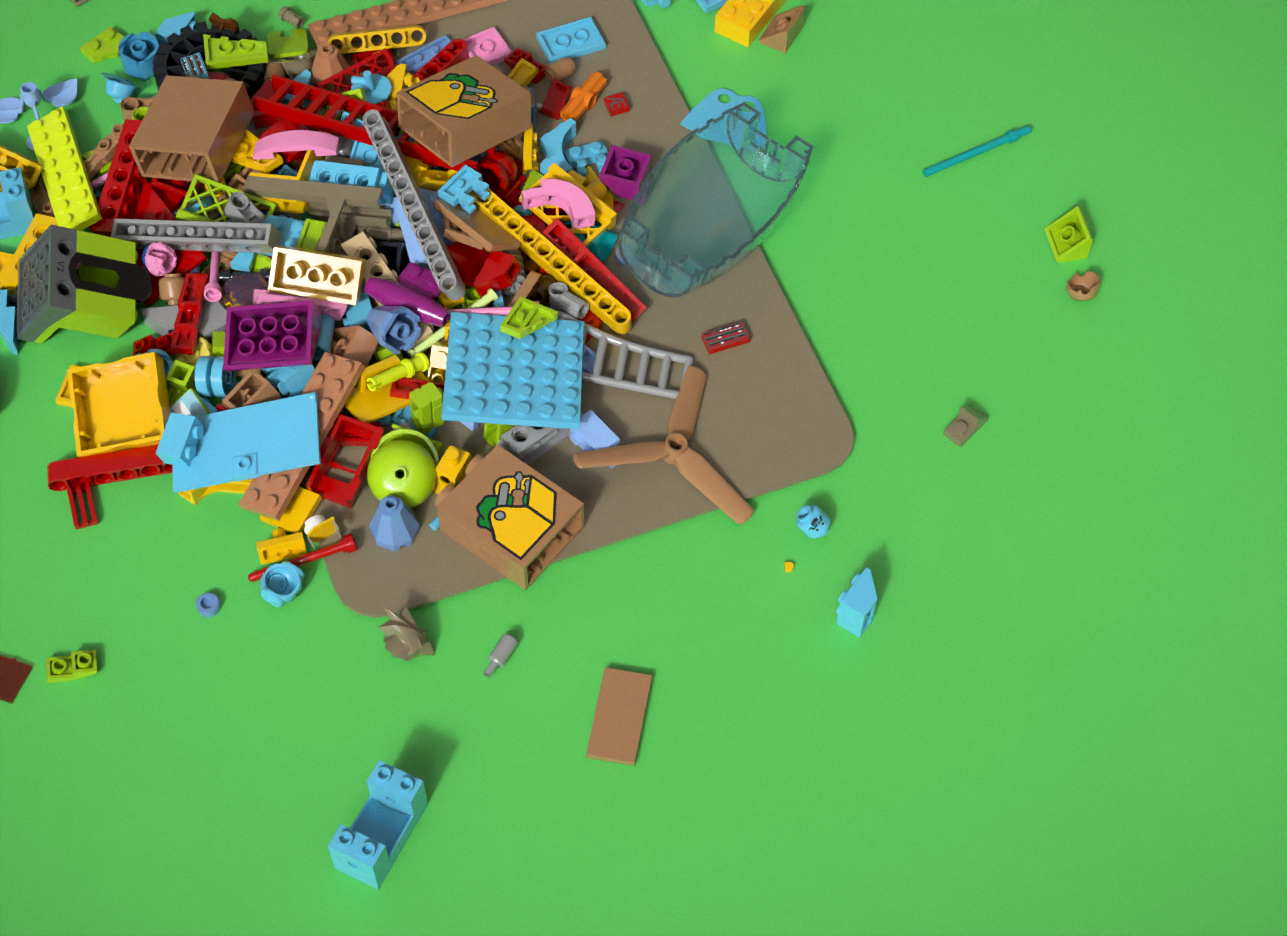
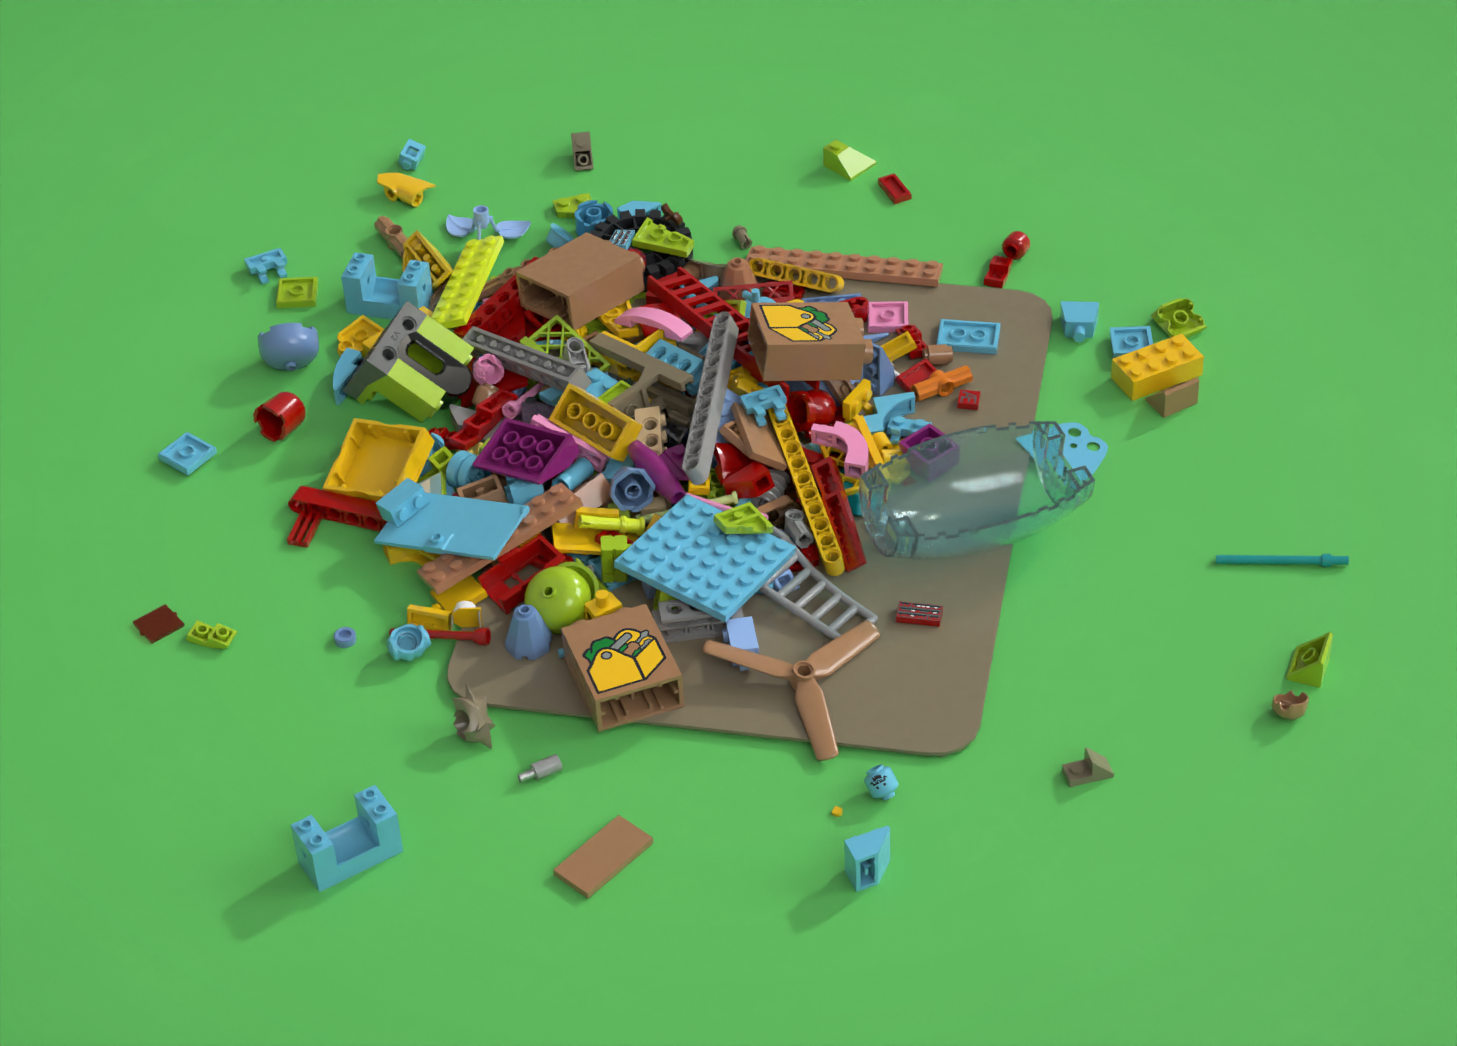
camera: 35 degrees right, 15 degrees down
(287, 46) = (718, 254): lime piece -> none

